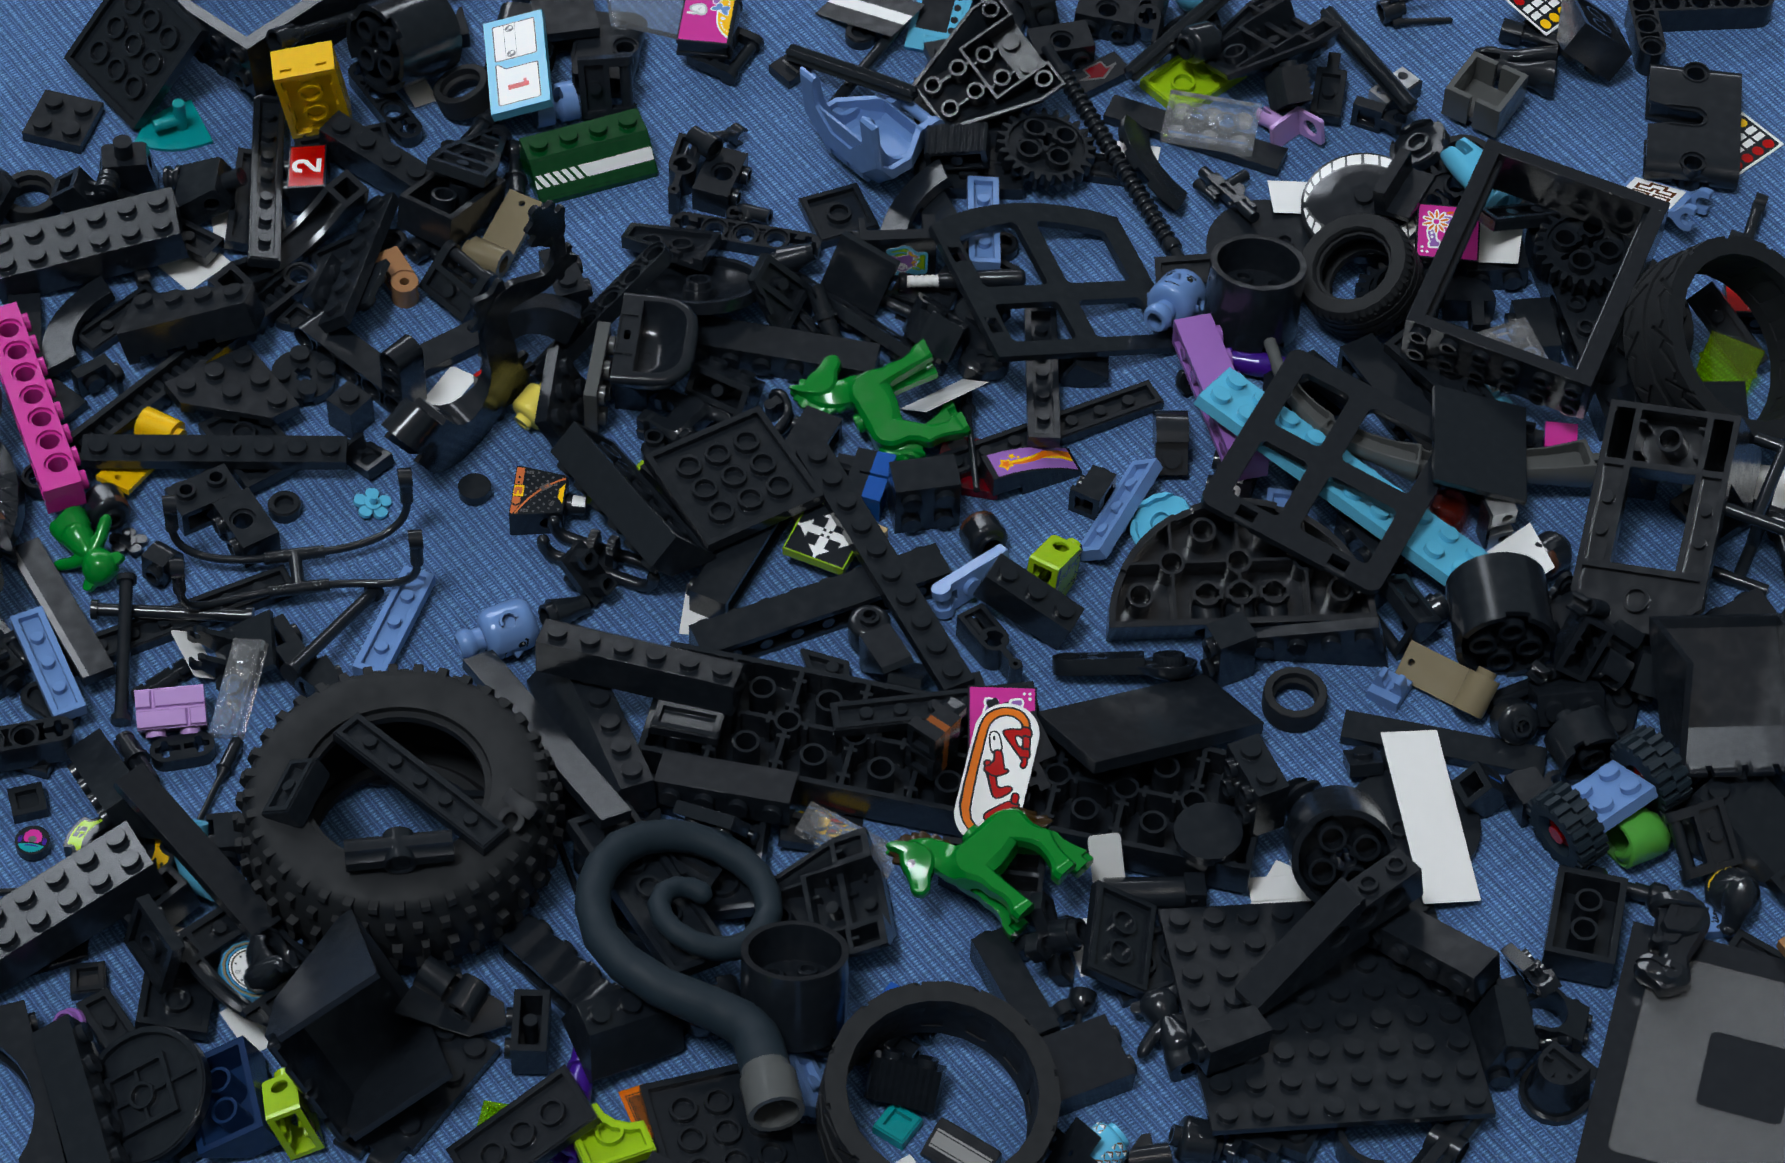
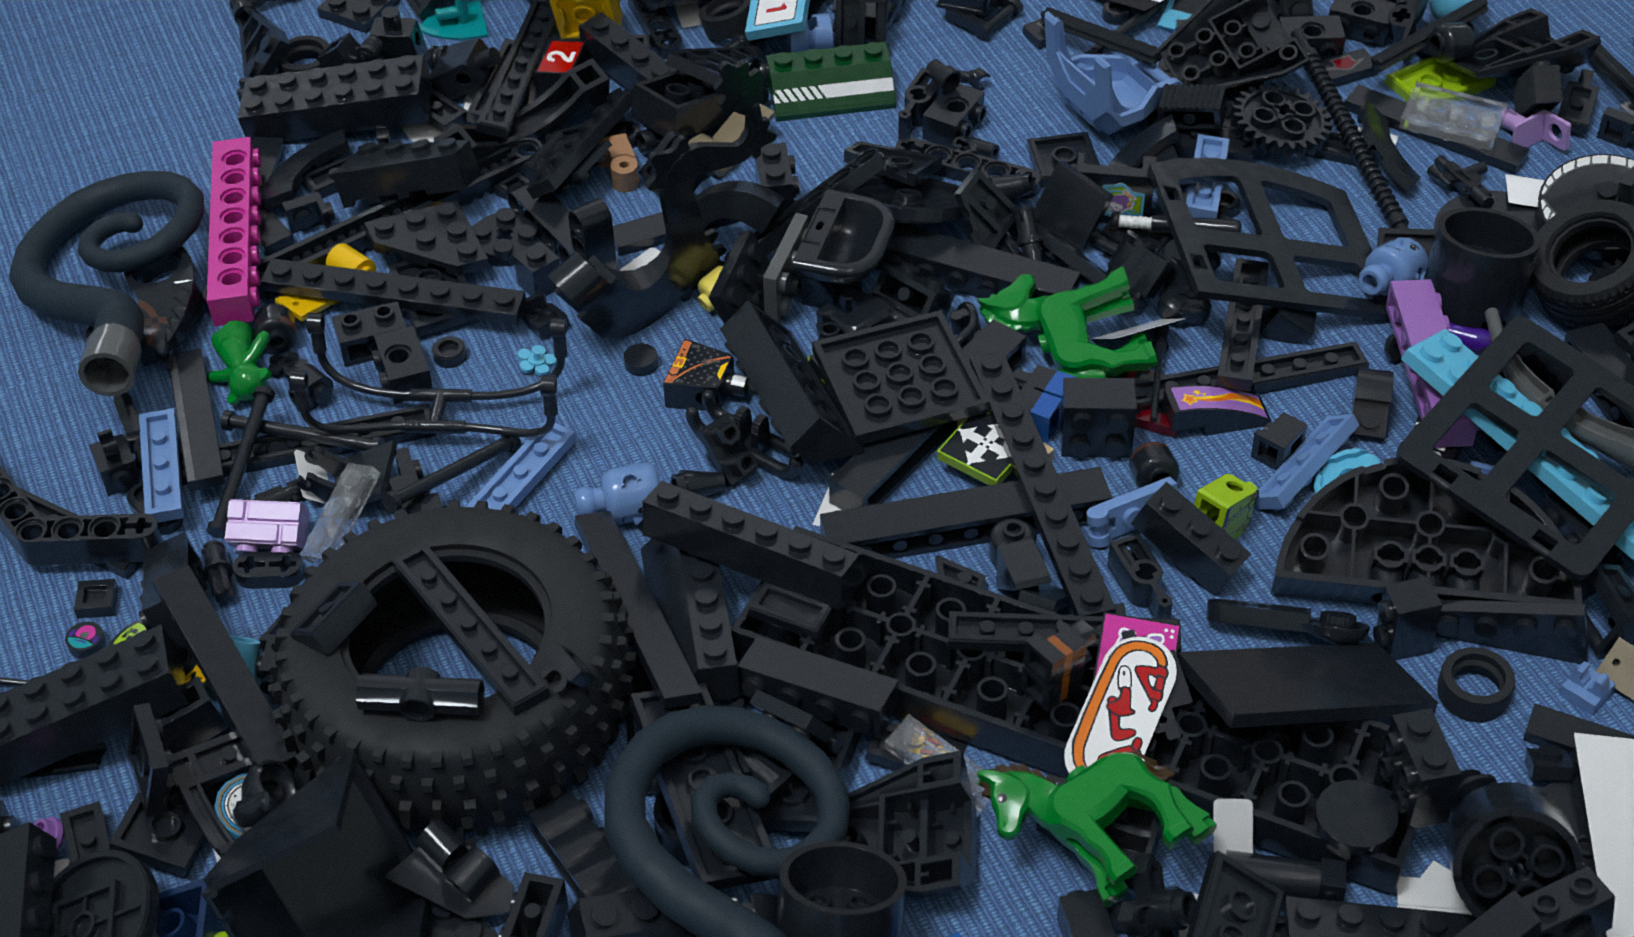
camera: 15 degrees right, 5 degrees down
(87, 979) = (87, 788): black tile -> none

